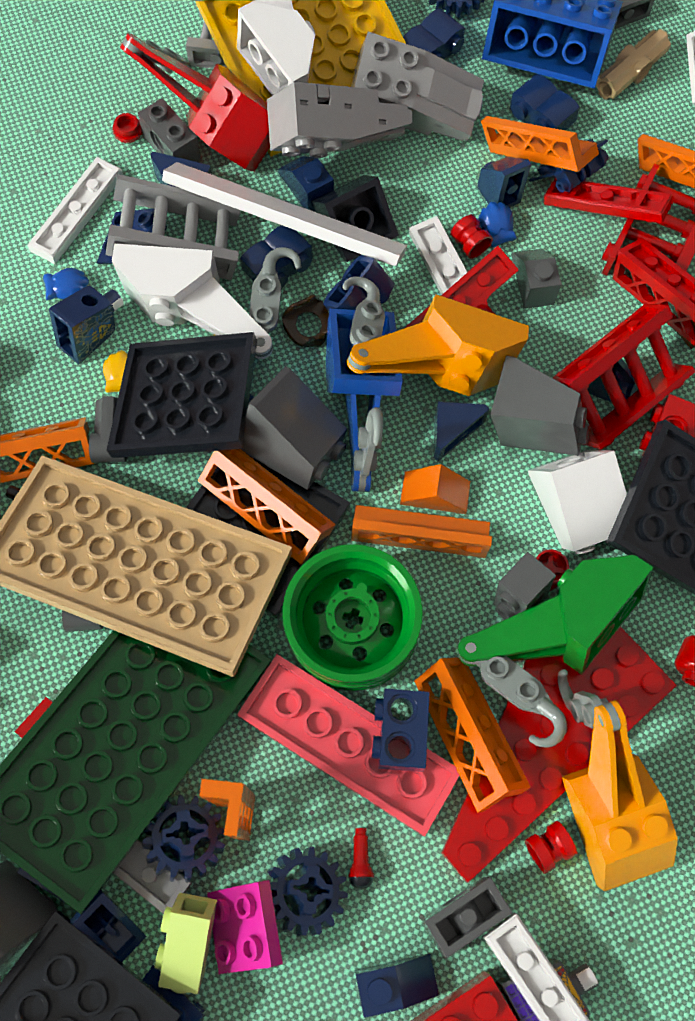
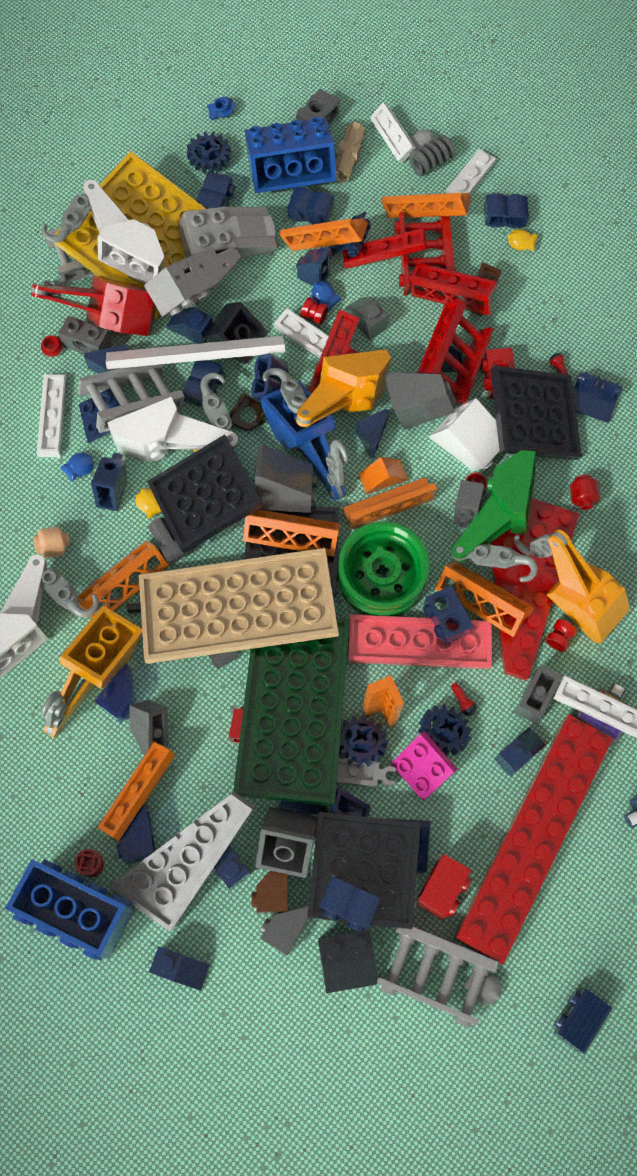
camera: 30 degrees left, 0 degrees up
(187, 943) = (399, 791): yellowish green brick -> none

